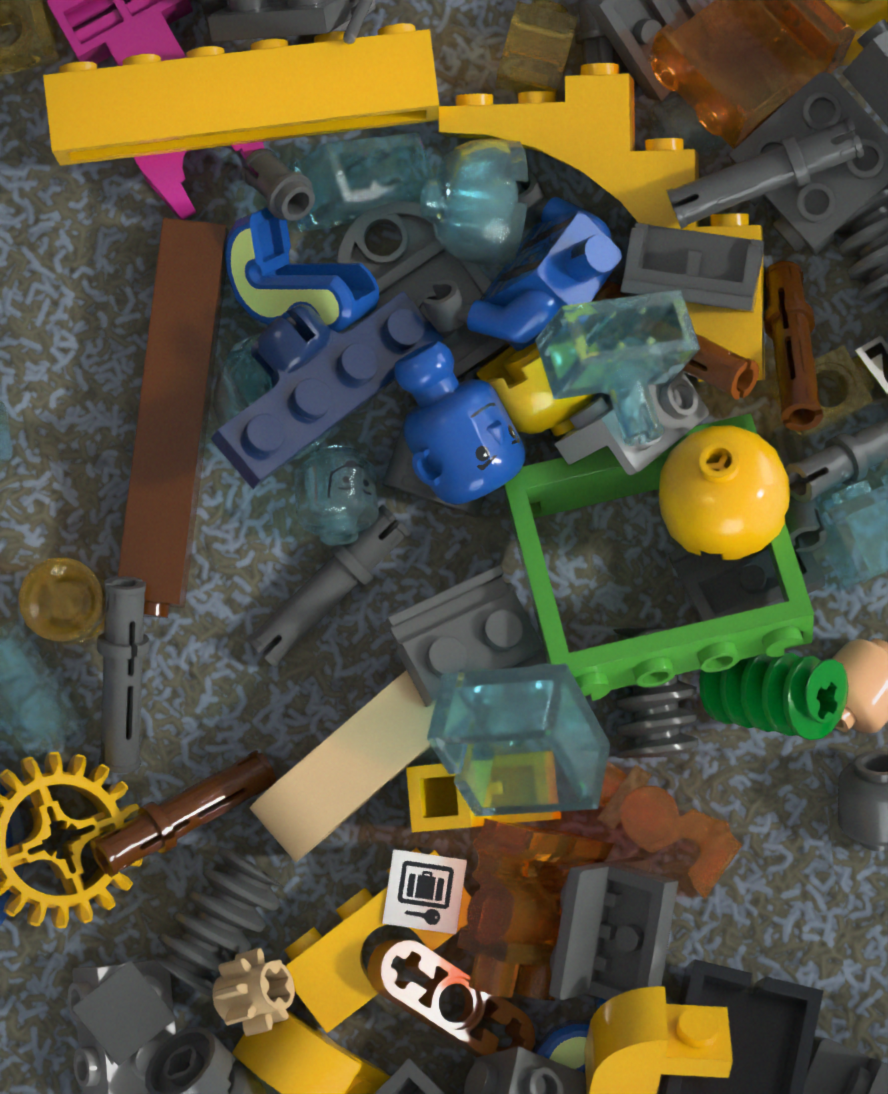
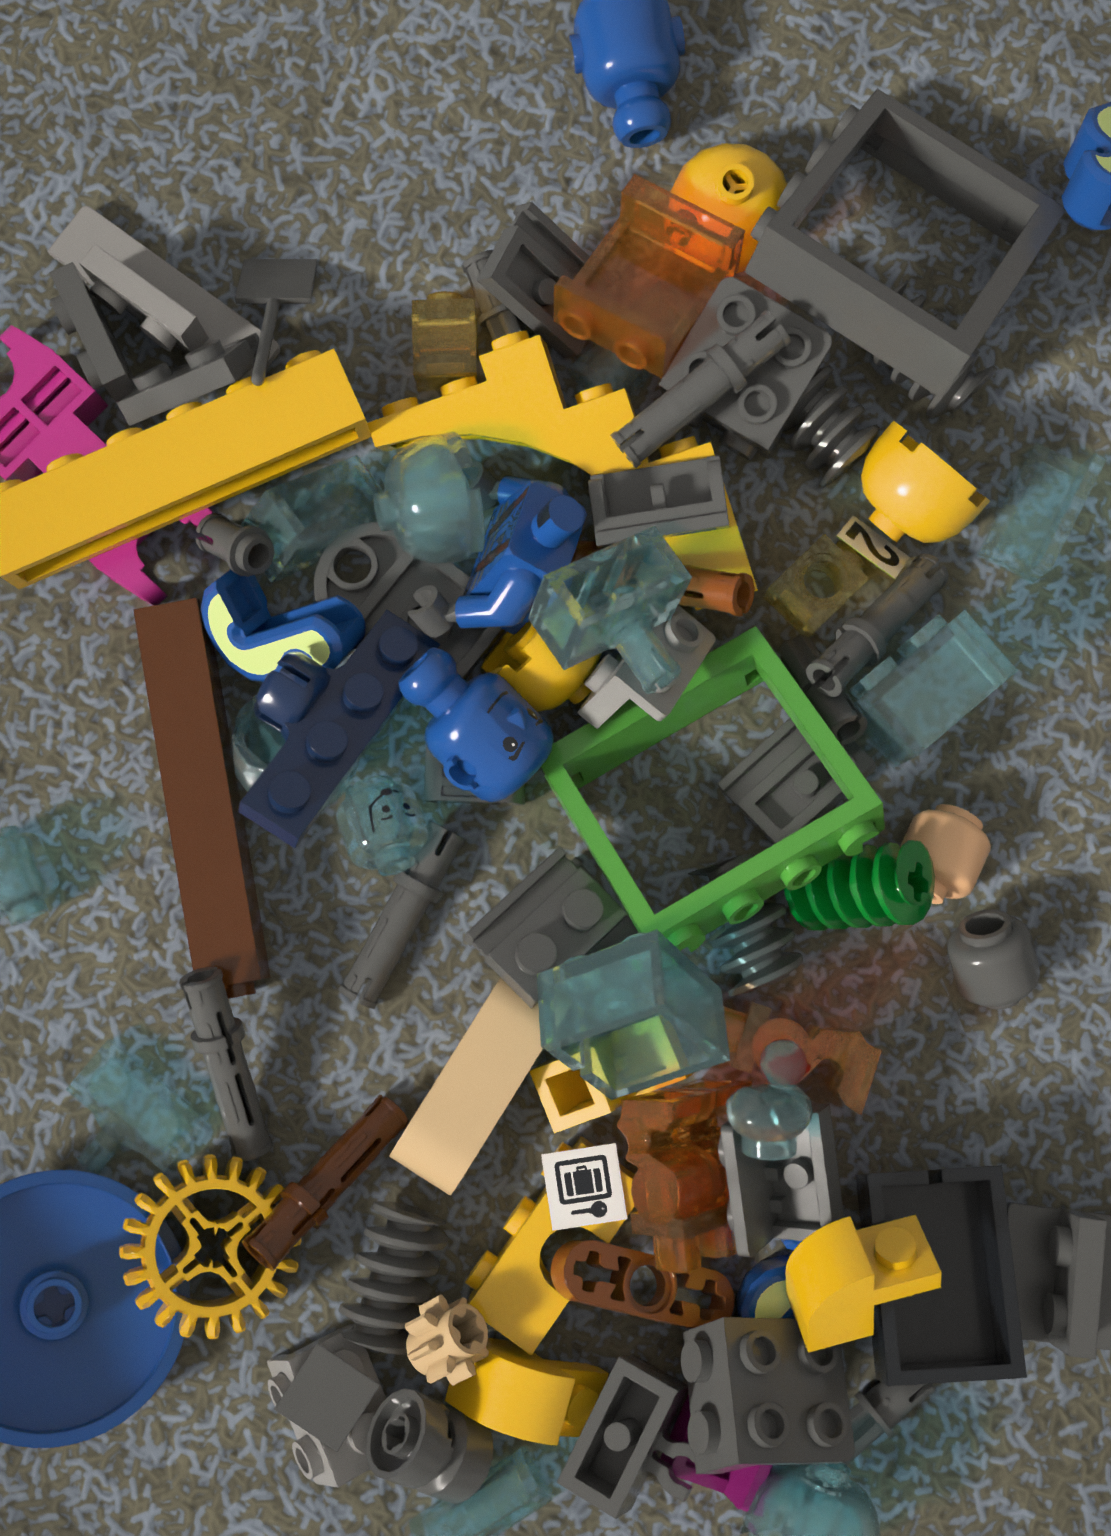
camera: 15 degrees left, 0 degrees up
(63, 601) = (146, 1010): clear yellow wheel -> none
(625, 870) = (773, 1112): none -> clear light blue animal
(724, 492) = (756, 710): yellow cylinder -> none
(789, 325) = (798, 594): reddish brown pin -> none

